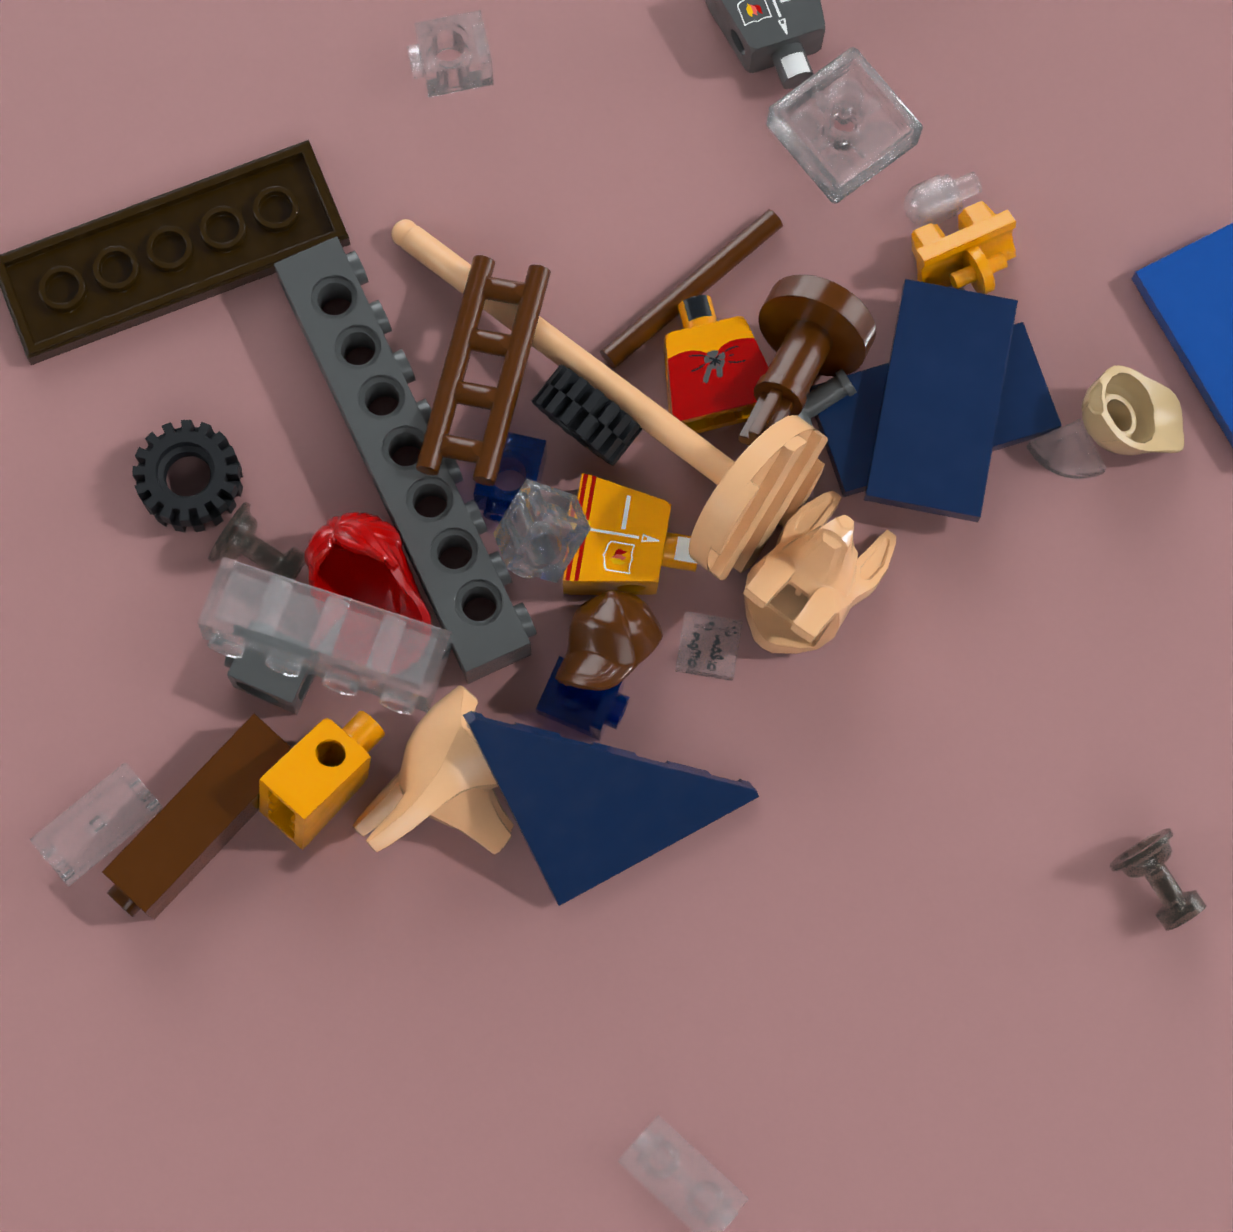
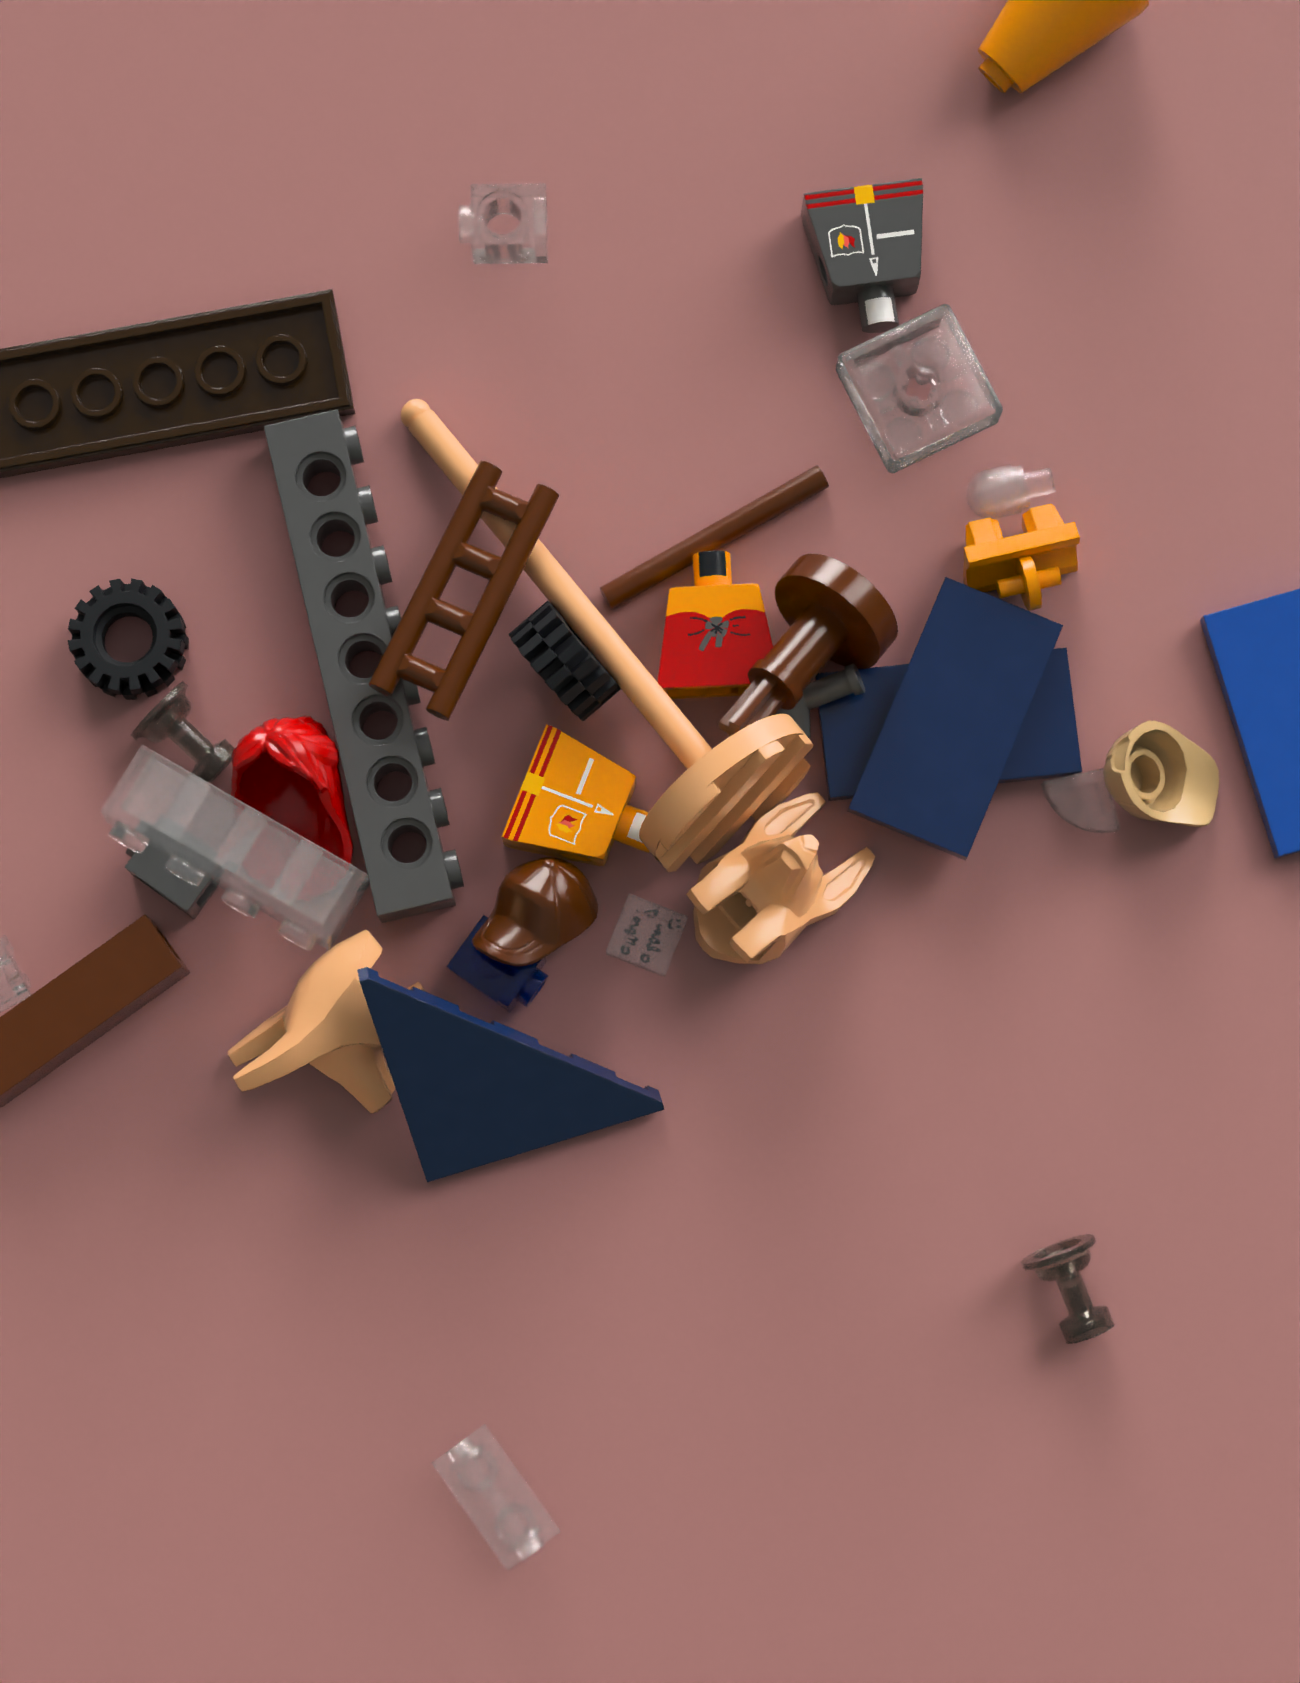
camera: 15 degrees right, 5 degrees up
(305, 793) = (184, 1014): light orange torso -> none
(522, 455) = (497, 694): clear blue brick -> none
(541, 531) = (488, 780): clear brick -> none

